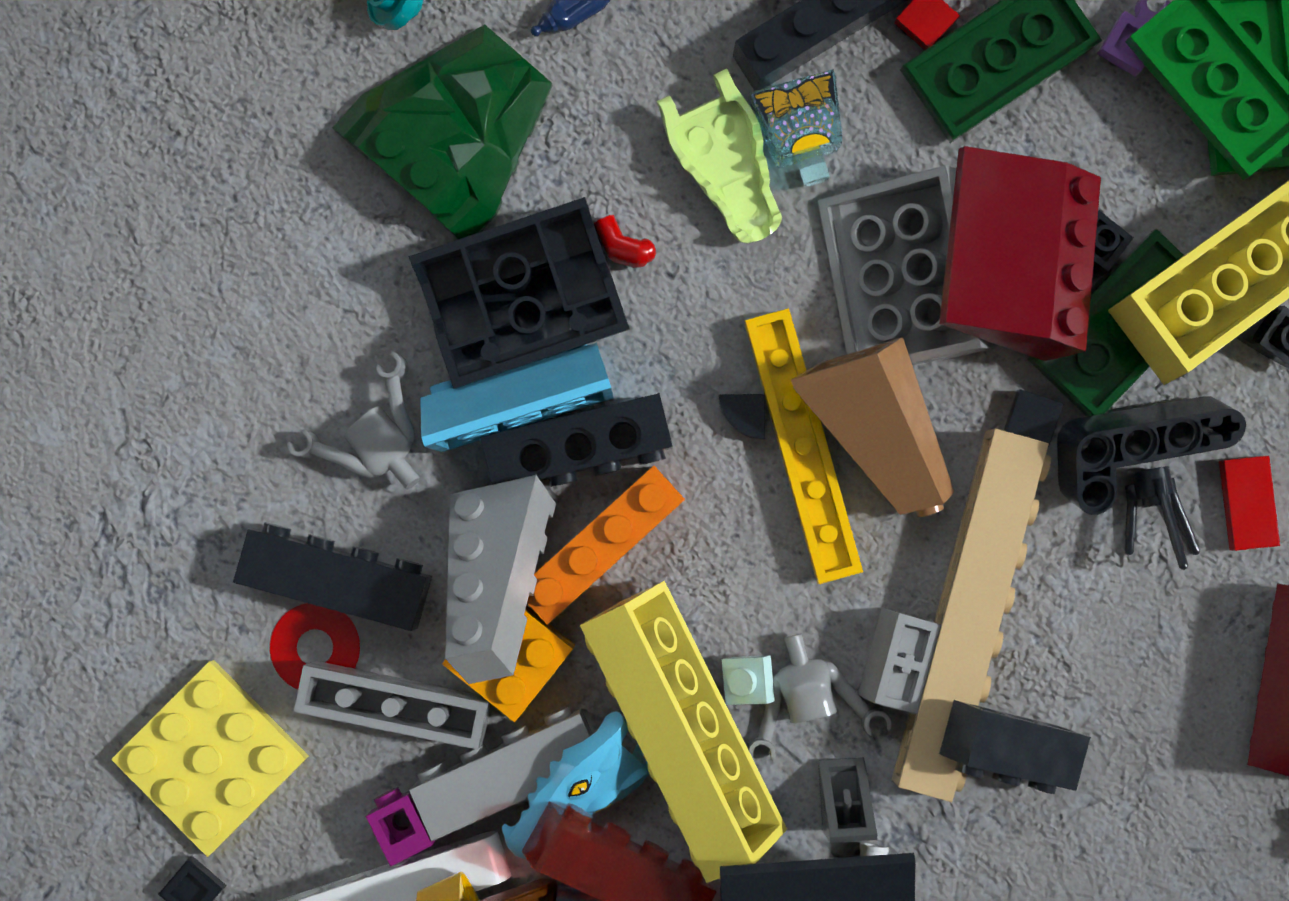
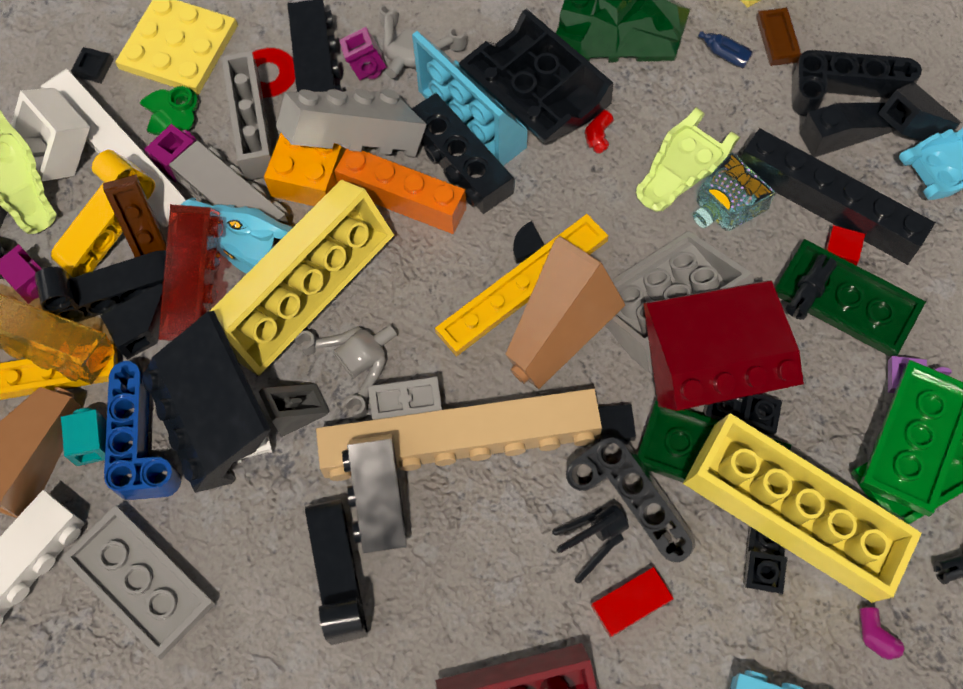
camera: 70 degrees right, 20 degrees down
(327, 810) = (168, 109): none -> green plate
(374, 509) = (365, 60): none -> magenta brick
(748, 680) = (350, 313): light aqua plate -> none
(979, 96) = (811, 287): none -> black pin
(1082, 829) = (342, 606): none -> black beam

